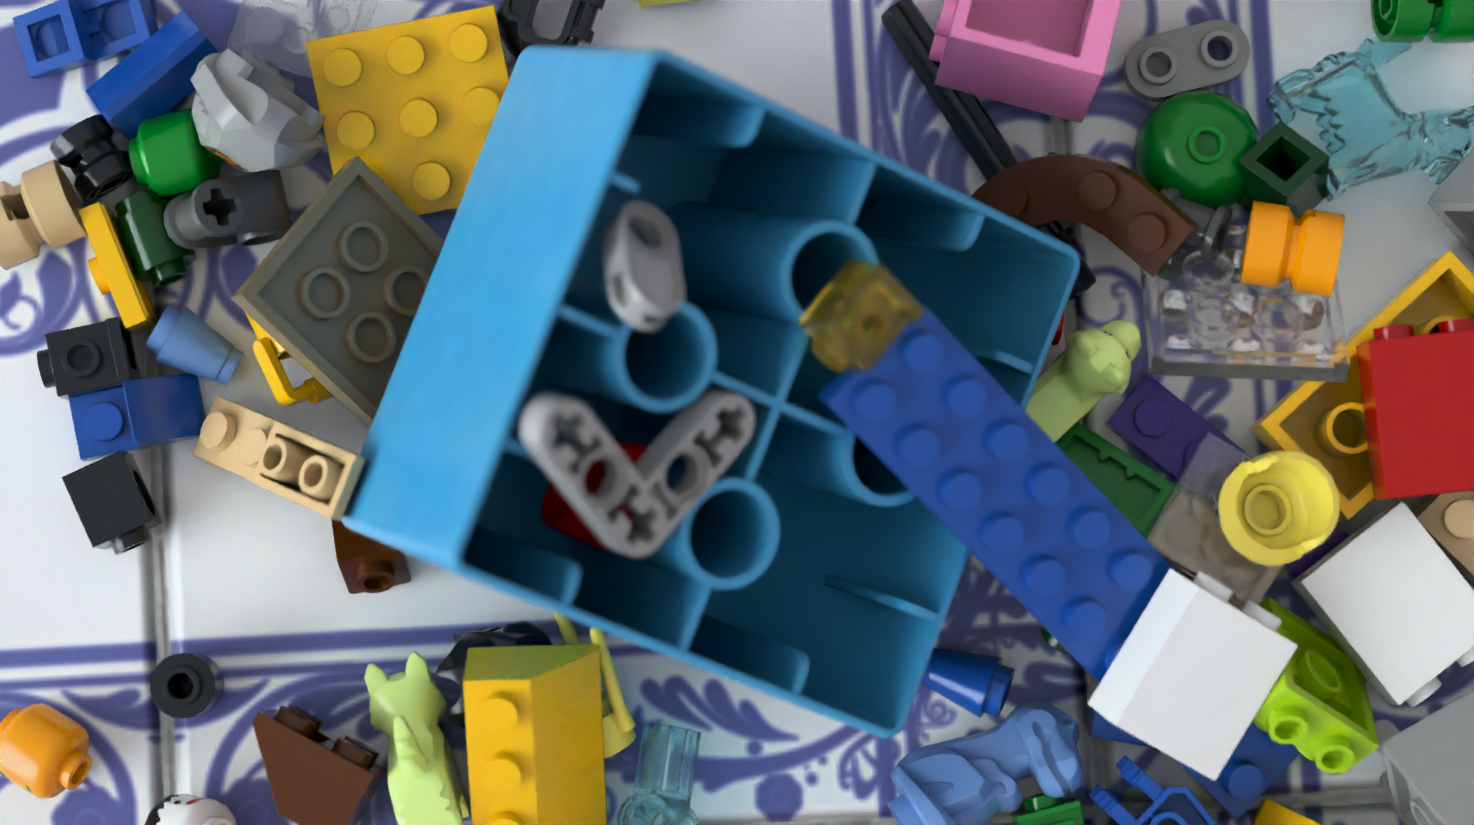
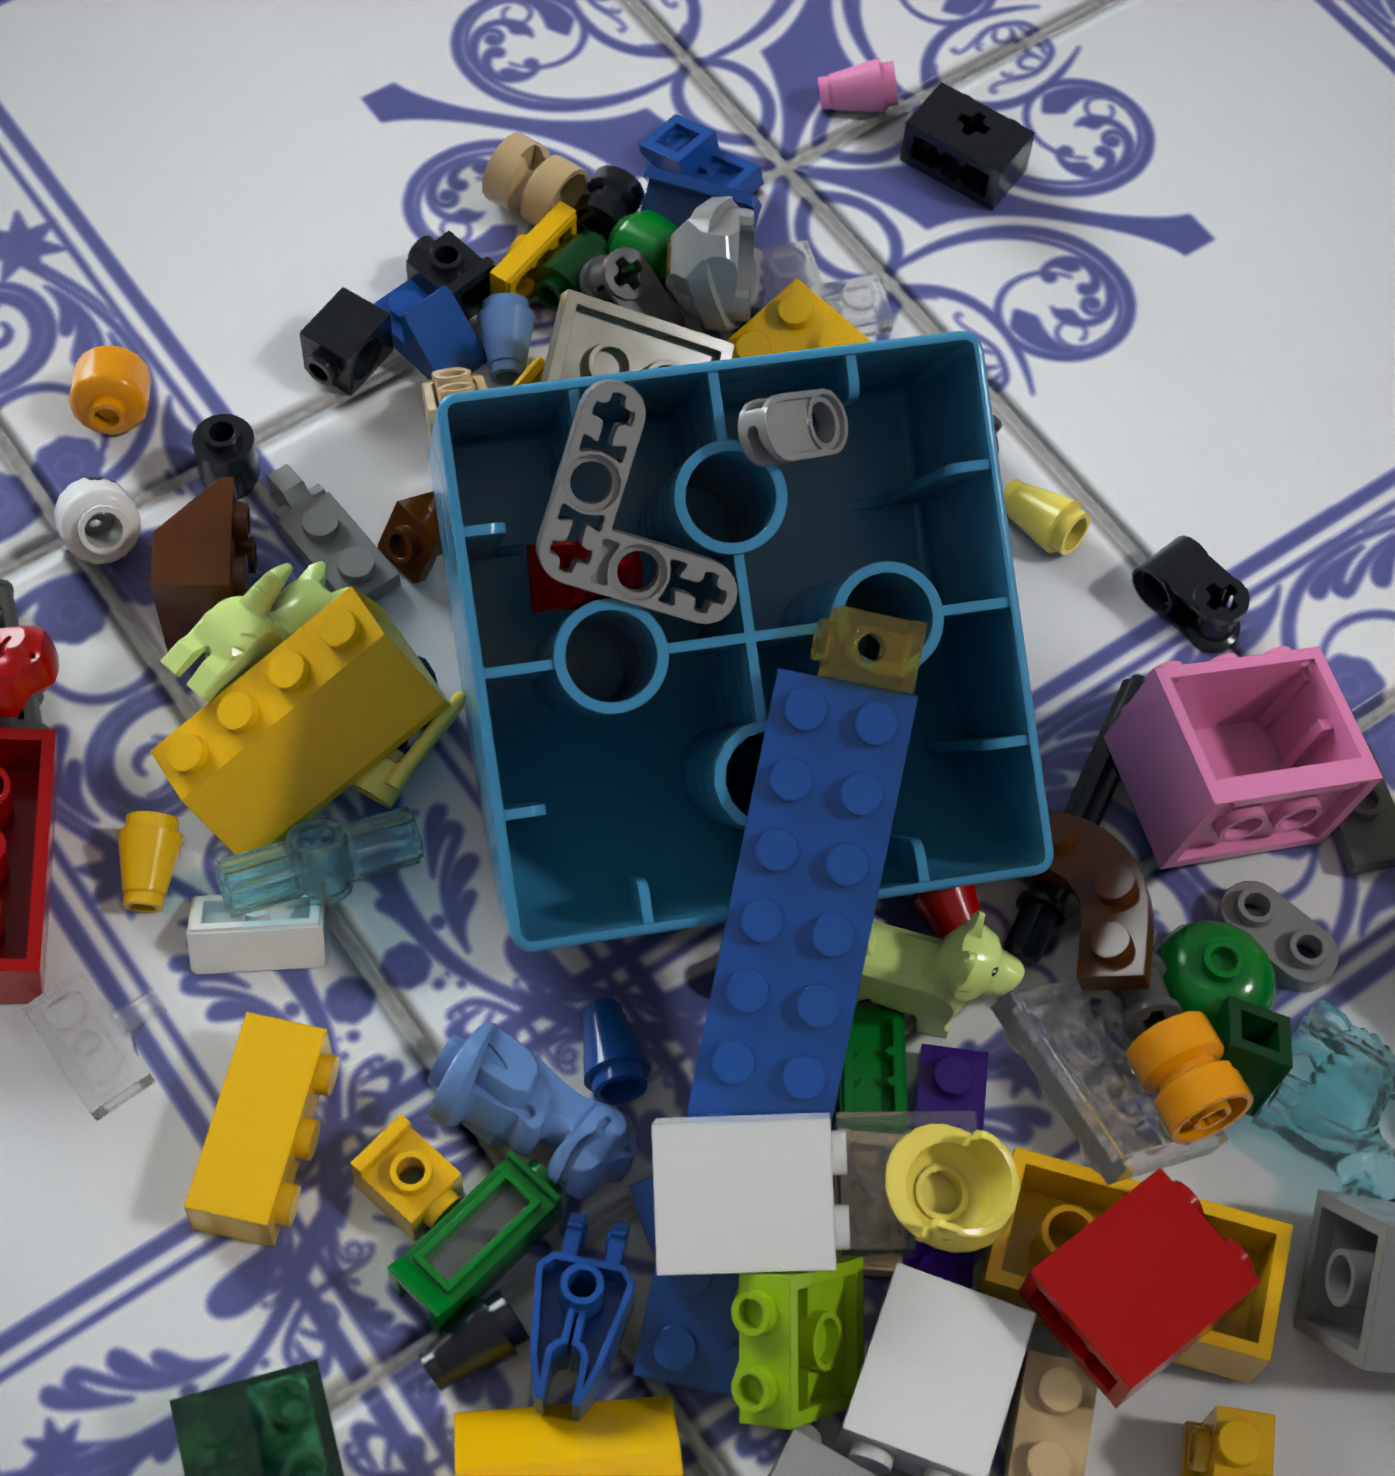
camera: 55 degrees right, 25 degrees down
(325, 634) = (323, 531): none -> light grey hinge

